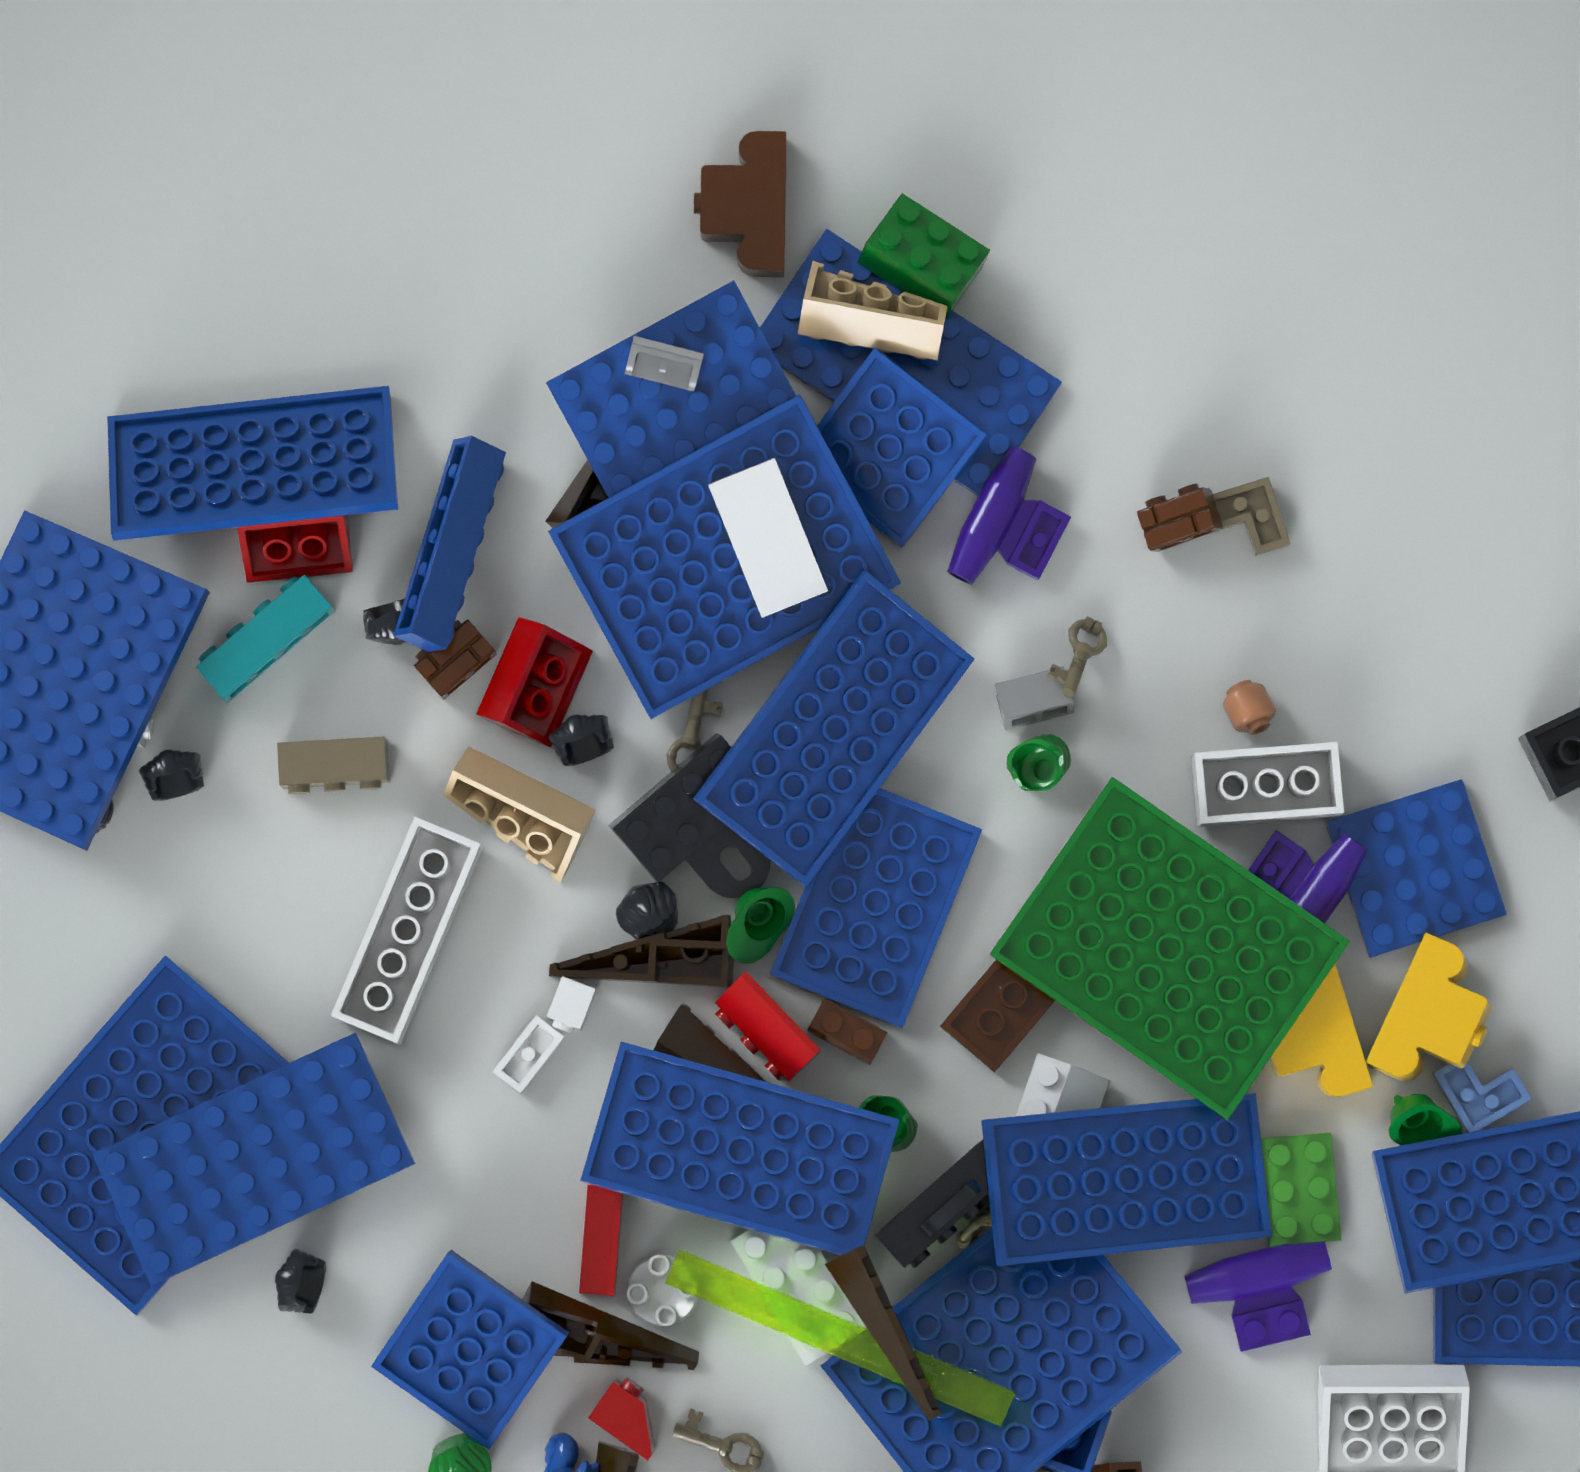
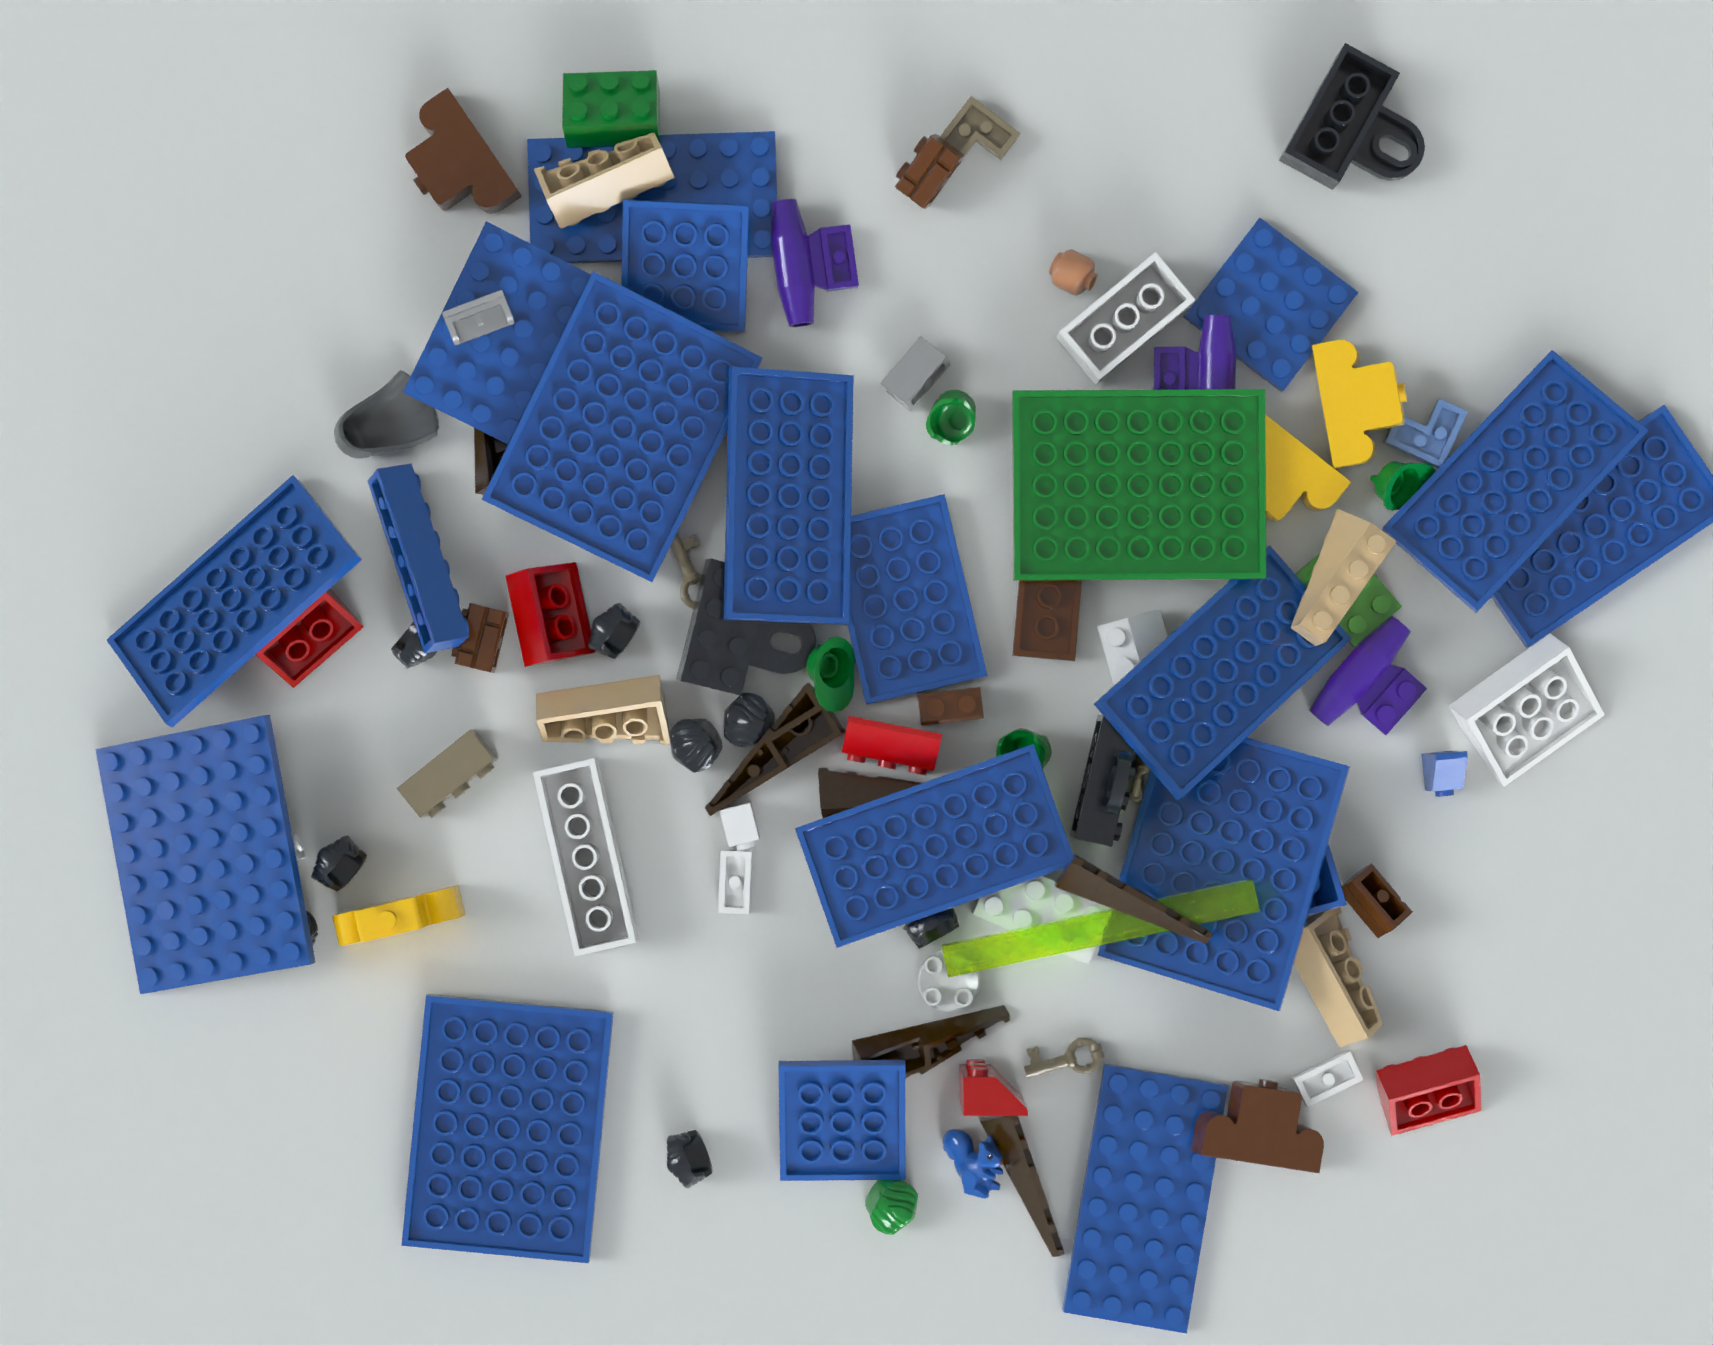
camera: 30 degrees left, 5 degrees up
(193, 862) = (398, 916): none -> yellow brick
(253, 1159) = (592, 1095): blue plate -> none
(264, 638) = (334, 719): teal brick -> none
(510, 397) = (386, 422): none -> dark grey hair
(583, 898) = (695, 744): none -> black hair
(601, 1241) = (881, 978): red panel -> none
(683, 1227) = (932, 927): none -> black hair
(768, 537) = (643, 391): white tile -> none
(1082, 652) = (927, 317): dark tan piece -> none
(1271, 1424) = (1444, 771): none -> slope
(1310, 1161) = (1344, 567): none -> tan wedge

